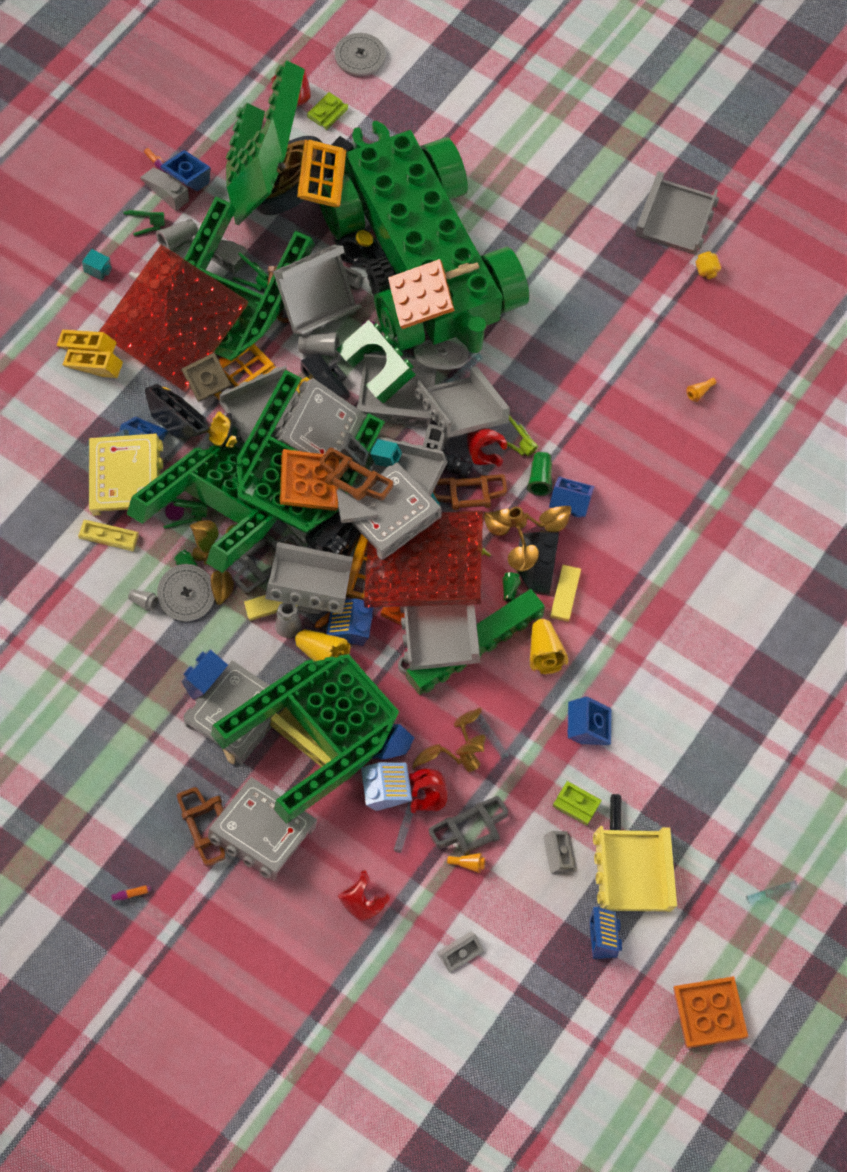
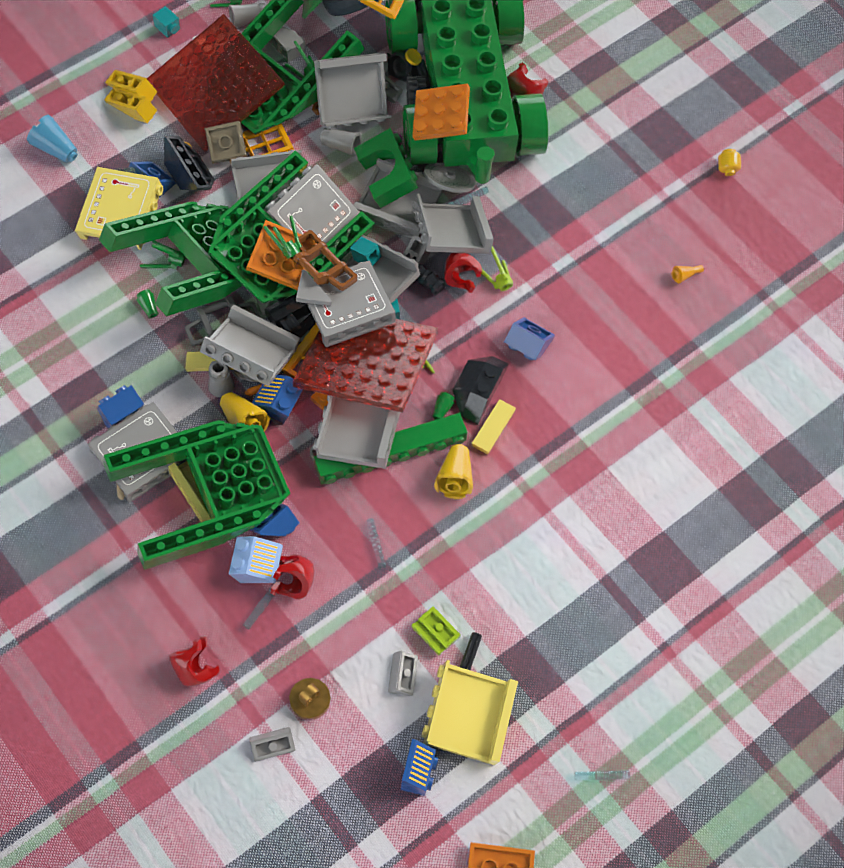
camera: 15 degrees right, 0 degrees up
(30, 422) = (52, 139): none -> dark azure cone
(108, 535) = (87, 259): light yellow tile -> none
(144, 599) = (96, 325): light grey cone -> none
(172, 586) = (146, 339): light grey piece -> none
(173, 512) = (154, 255): magenta piece -> none
(190, 814) = (60, 535): dark orange bar -> none
(205, 536) = (170, 329): pearl gold plant -> none
(224, 431) = (224, 193): yellow hair -> none
(256, 832) = (114, 570): light grey panel -> none
(316, 367) = (332, 165): black piece -> none
(317, 472) = (288, 248): none -> green plant
(353, 449) = (333, 239): dark grey slope -> none
(462, 269) = (488, 100): tan piece -> none
(465, 752) = (343, 549): pearl gold plant -> none
(472, 862) = (314, 659): light orange cone -> none
(480, 810) = (307, 631): dark grey bar -> none
(480, 900) = (309, 698): none -> pearl gold tile
(486, 241) = (521, 85): none -> red piece
(486, 496) = (434, 299): dark orange bar -> none
(526, 556) = (453, 343): pearl gold plant -> none
(541, 475) = (506, 310): green plant -> none
(589, 722) = (474, 555): blue slope -> none
(676, 215) = (713, 111): light grey panel -> none

